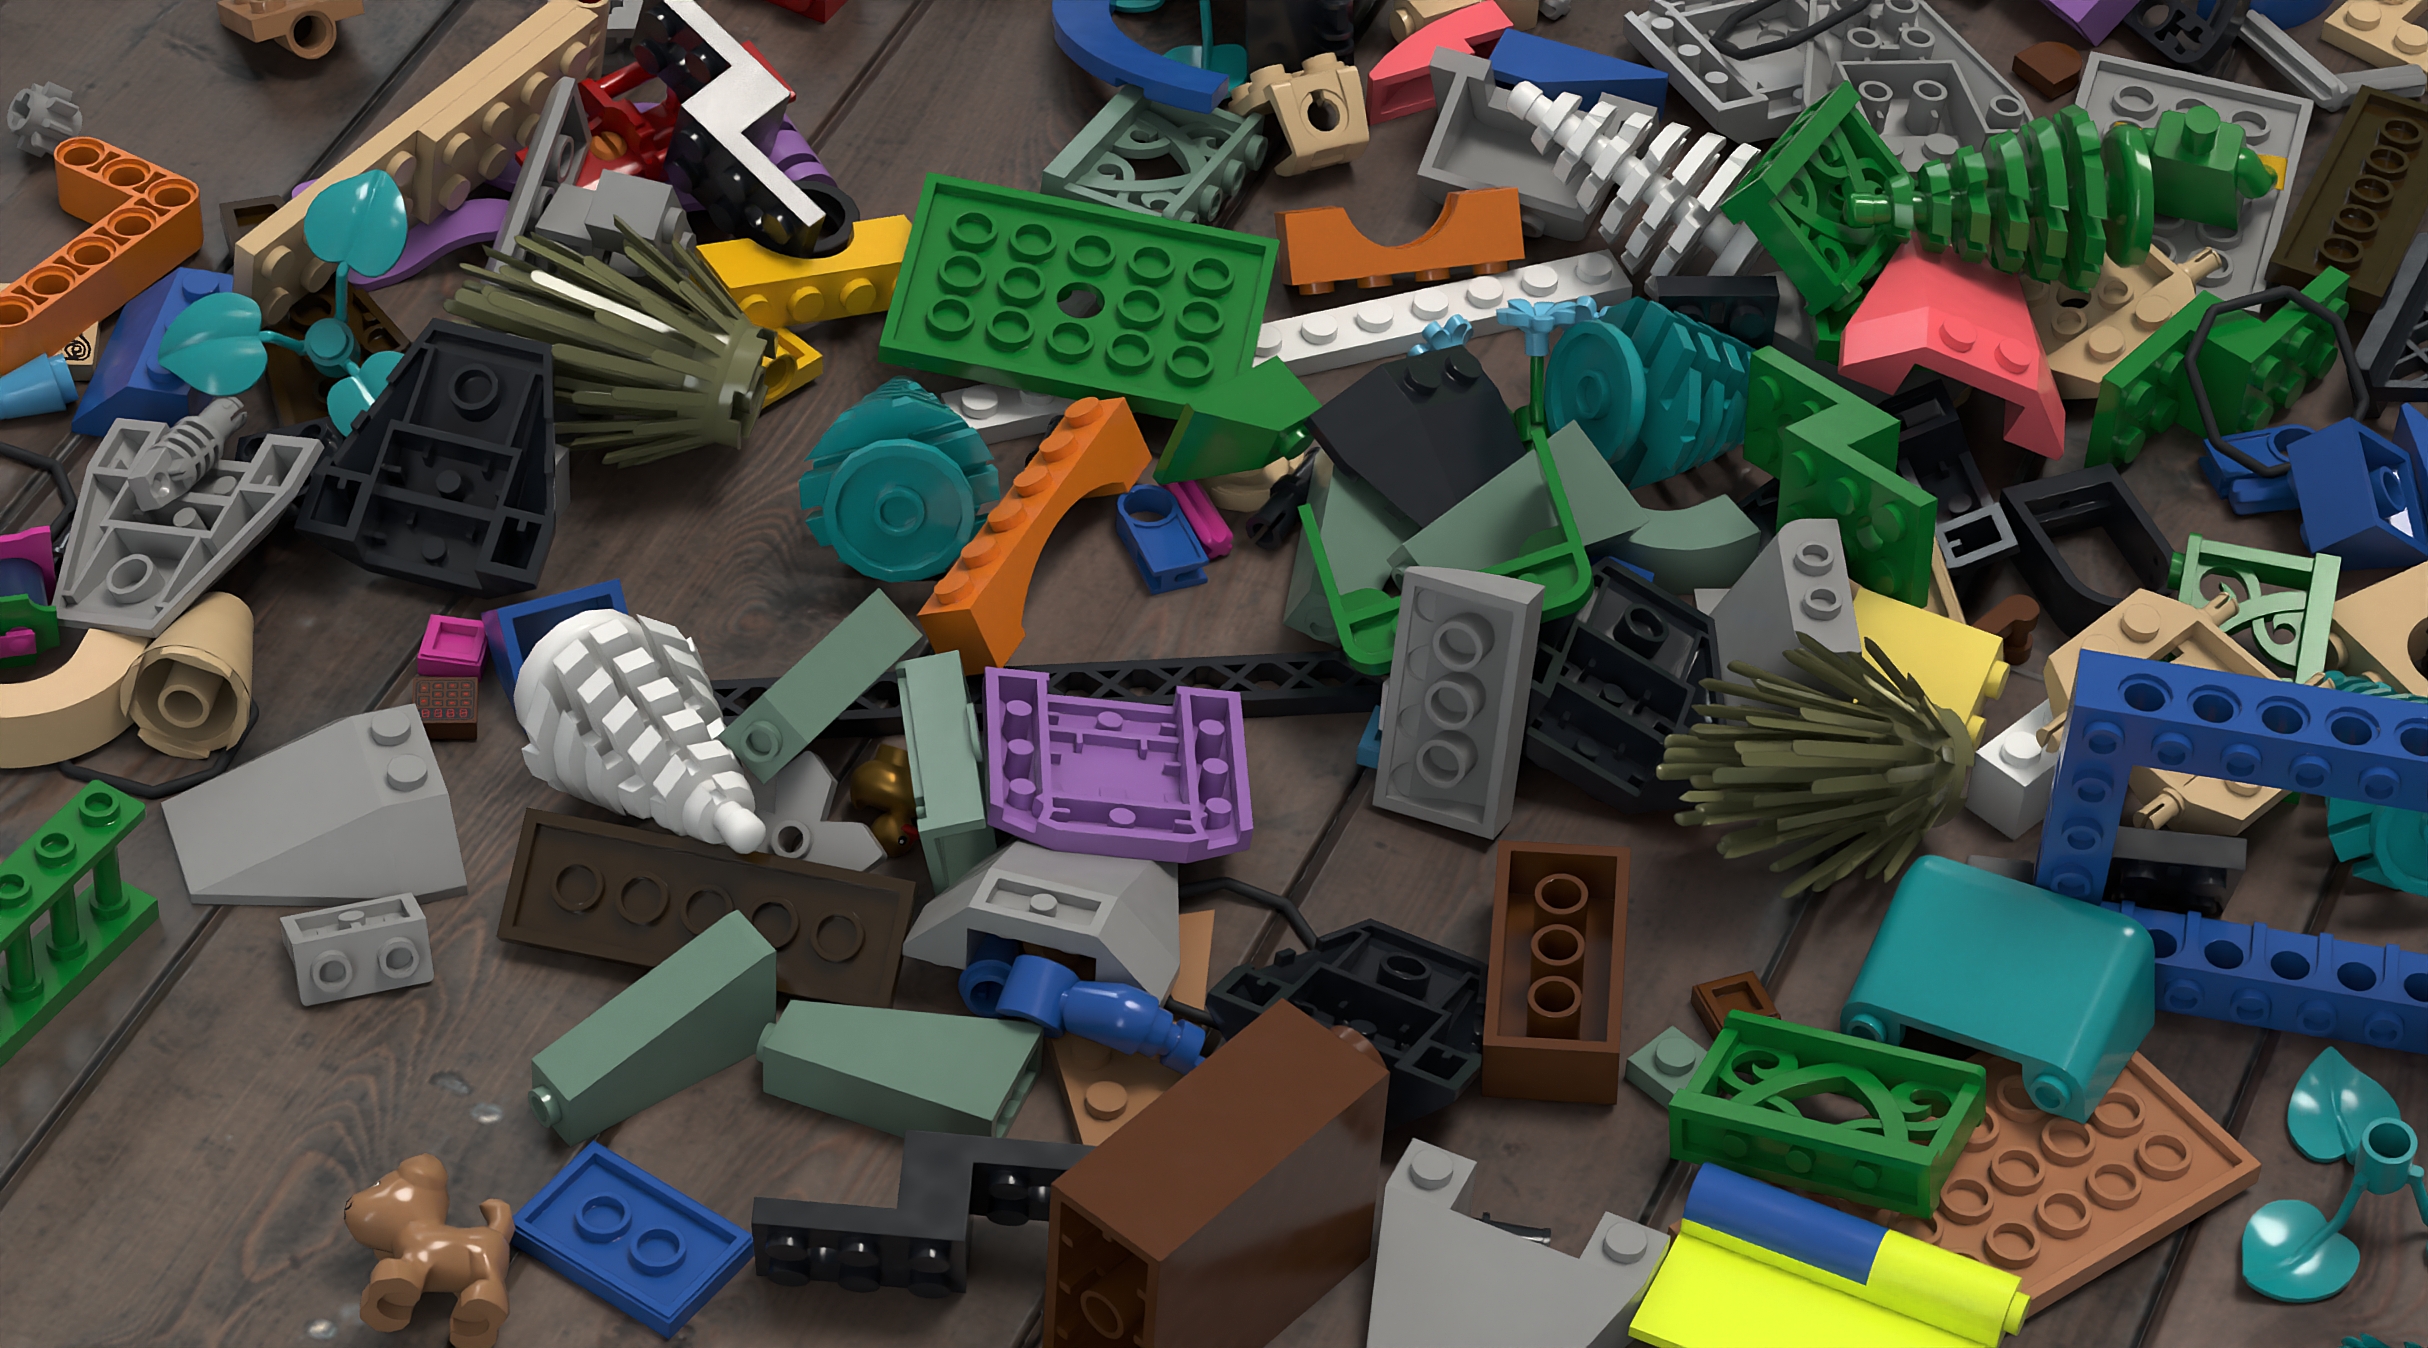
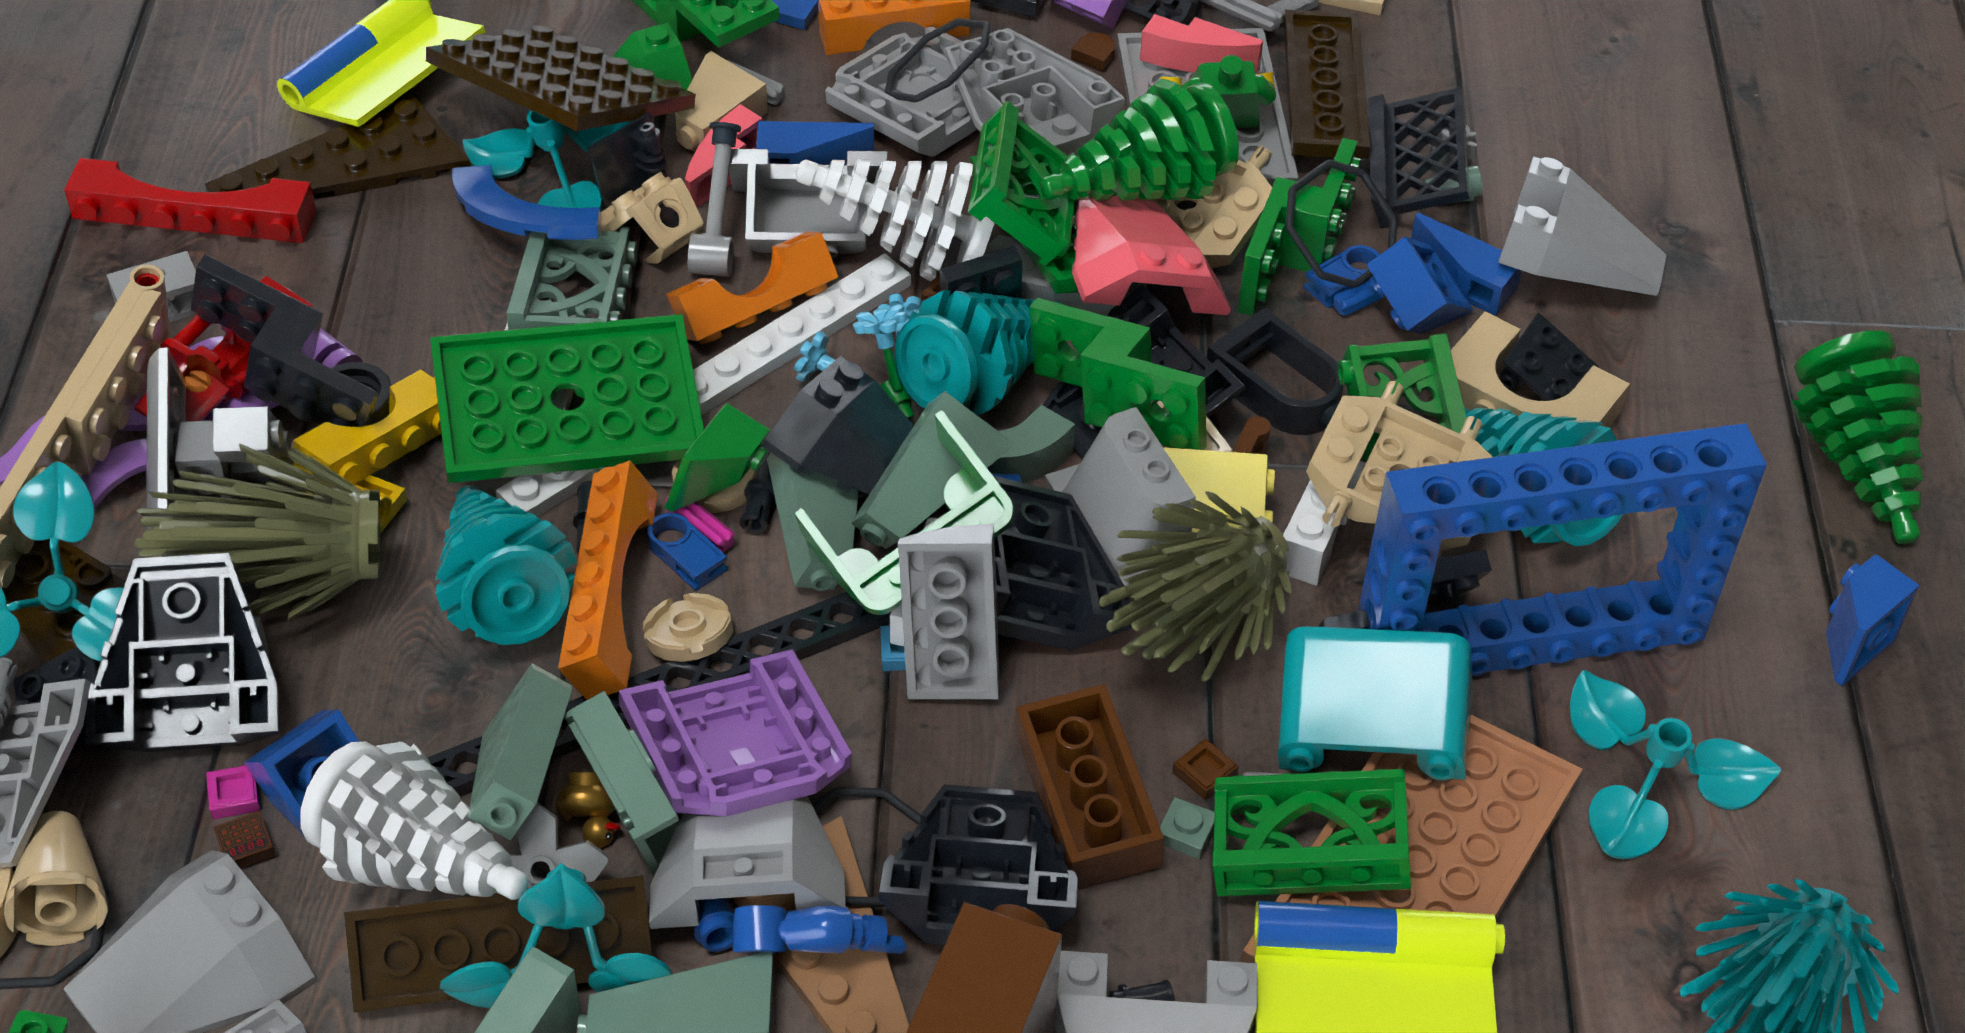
camera: 20 degrees left, 5 degrees up
(798, 868) = (563, 903): none -> teal plant
(1117, 631) = (688, 627): none -> tan tile
(1366, 179) = (710, 251): none -> light grey piece
(2155, 80) = (1186, 47): none -> coral slope

